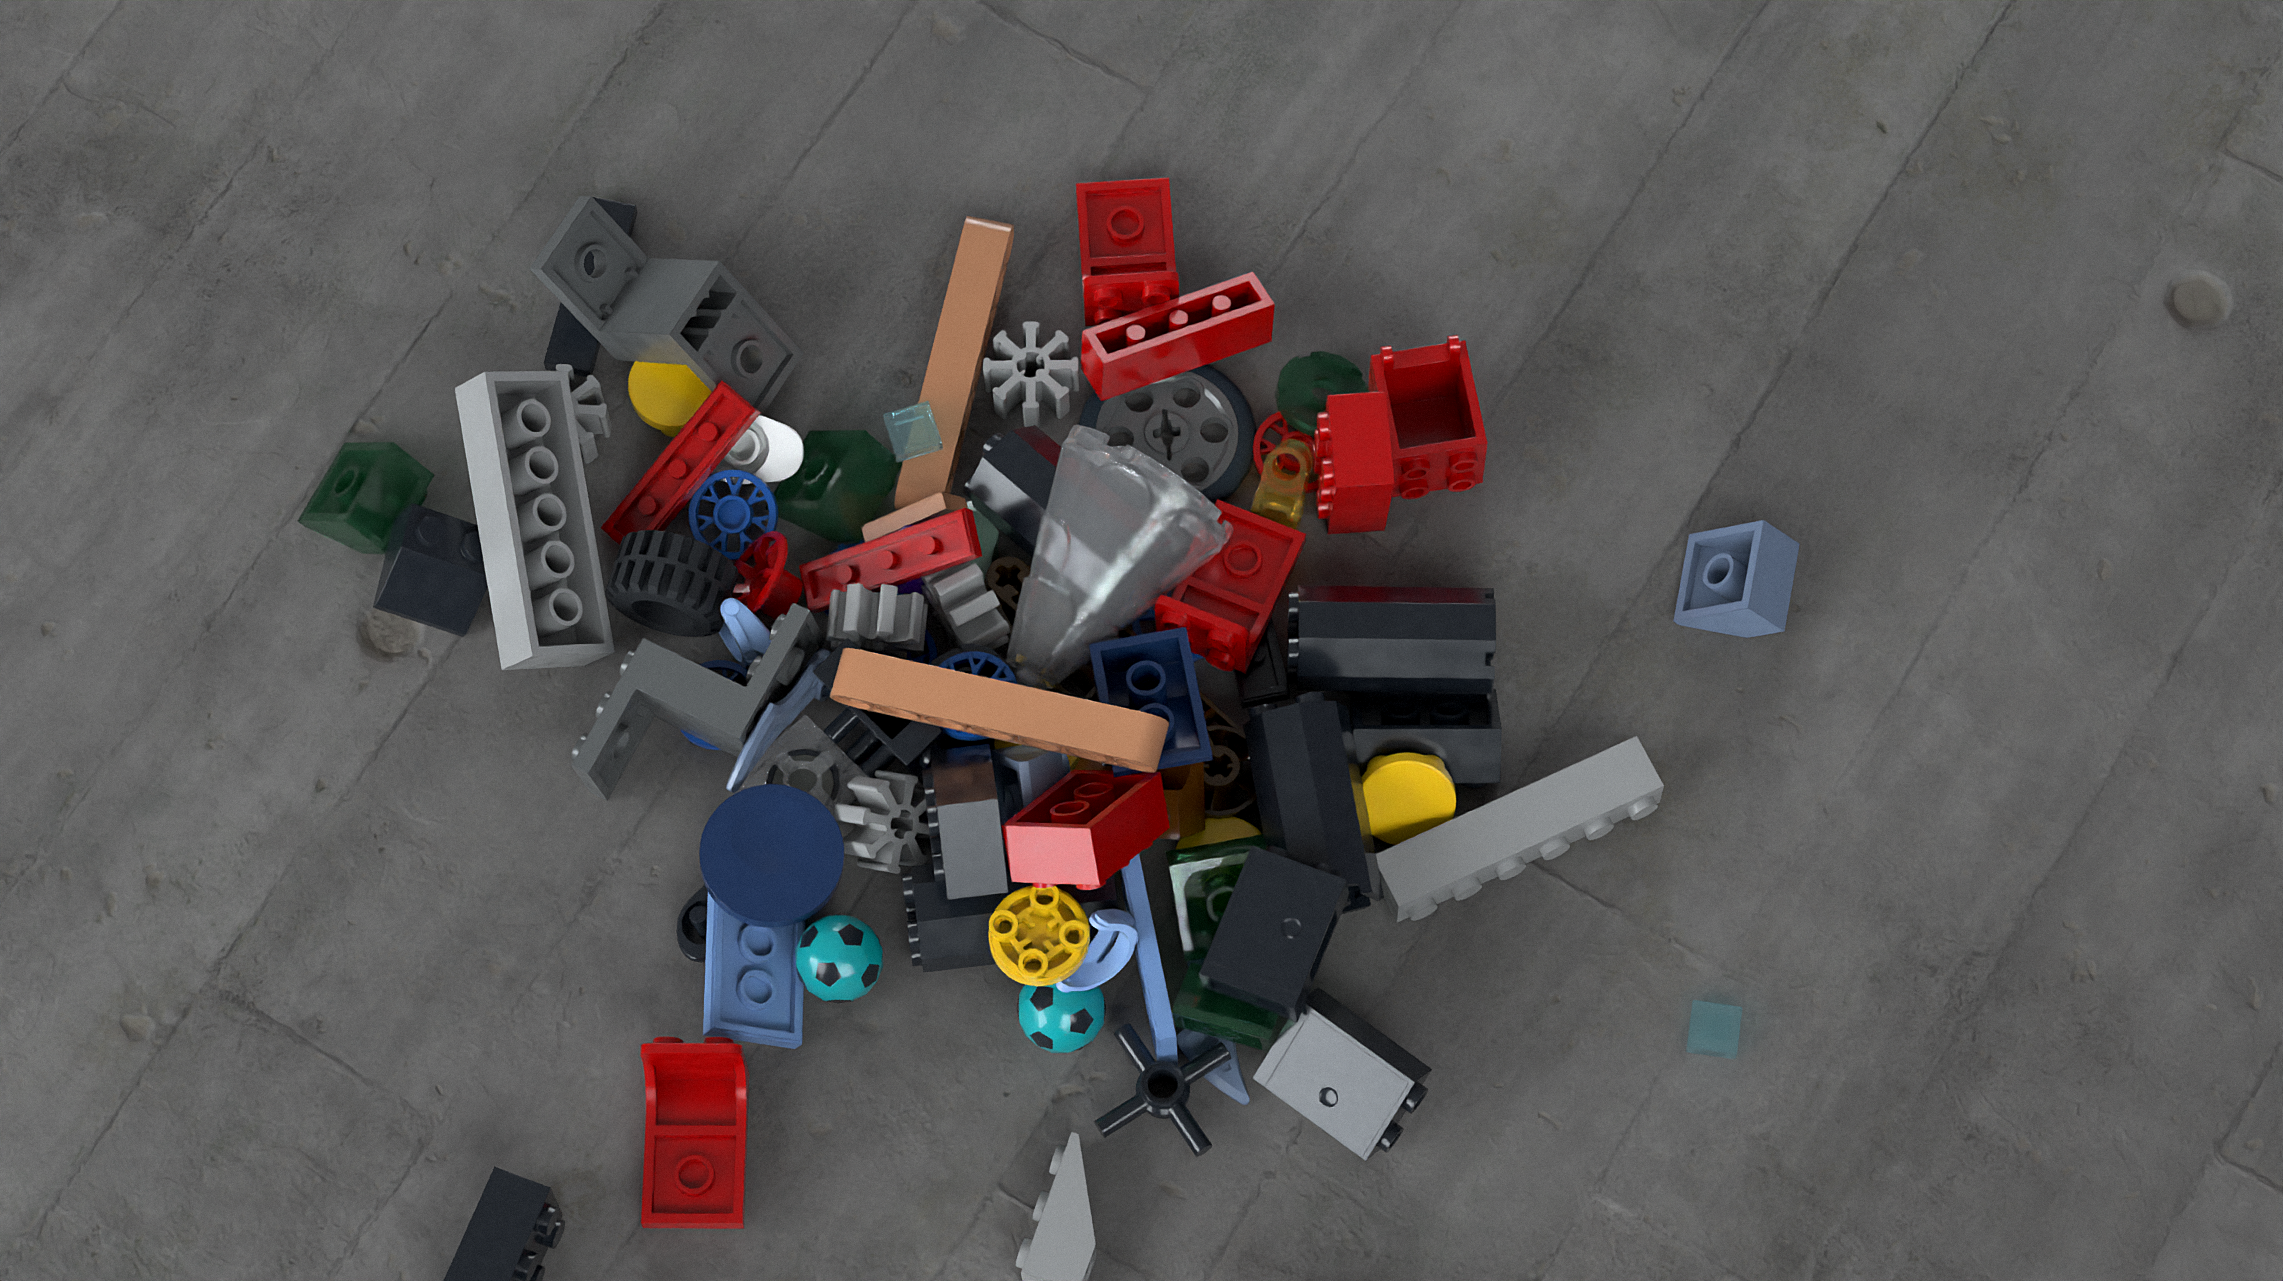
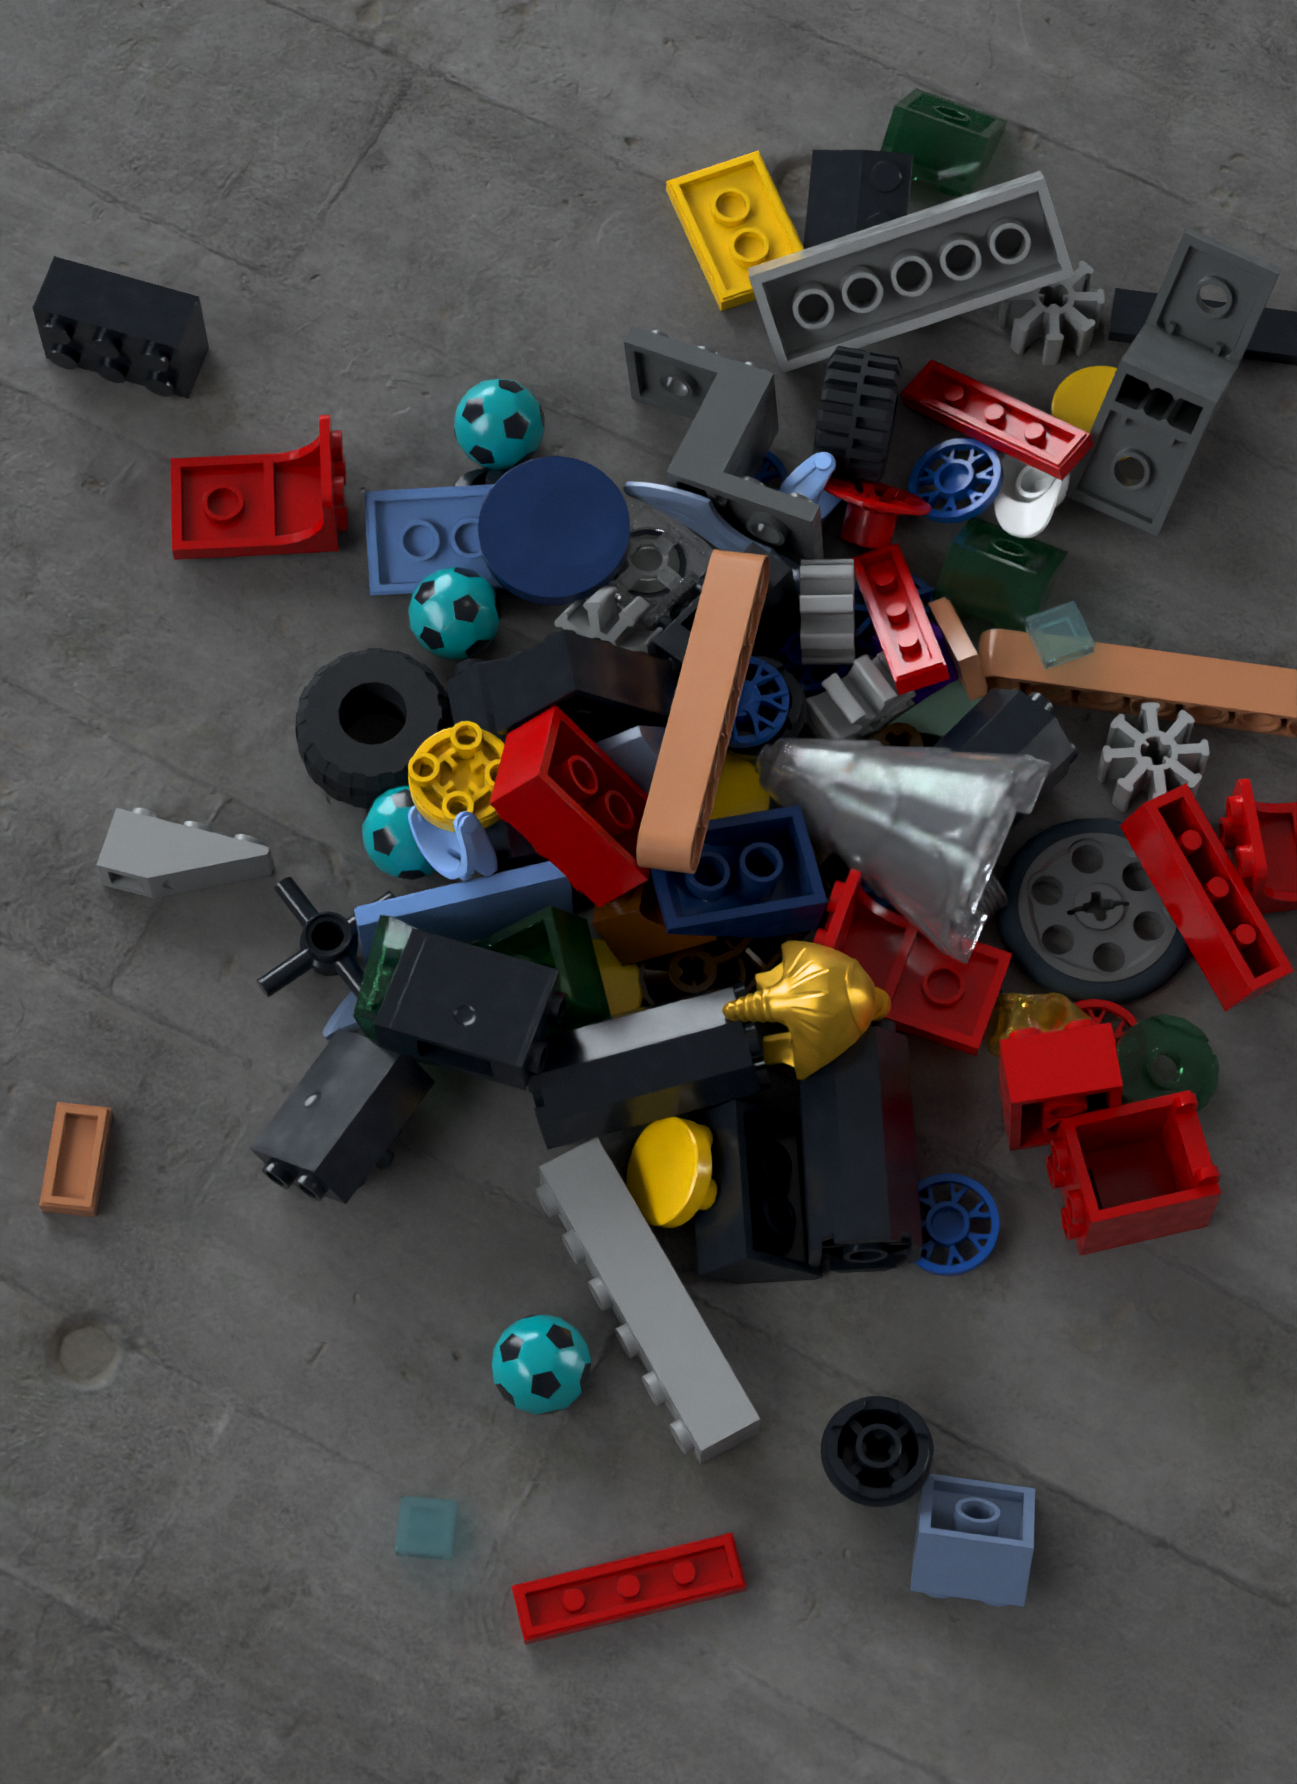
camera: 85 degrees right, 0 degrees up
(436, 690) = (733, 223): none -> yellow tile
(640, 909) = (499, 424): none -> teal piece
(943, 992) = (360, 686): none -> black tyre
(1294, 636) = (820, 999): none -> pearl gold piece
(1454, 573) = (950, 1224): none -> blue wheel
(1579, 916) = (541, 1364): none -> teal piece
(1667, 643) = (877, 1451): none -> black cone
(1770, 865) = (628, 1588): none -> red tile

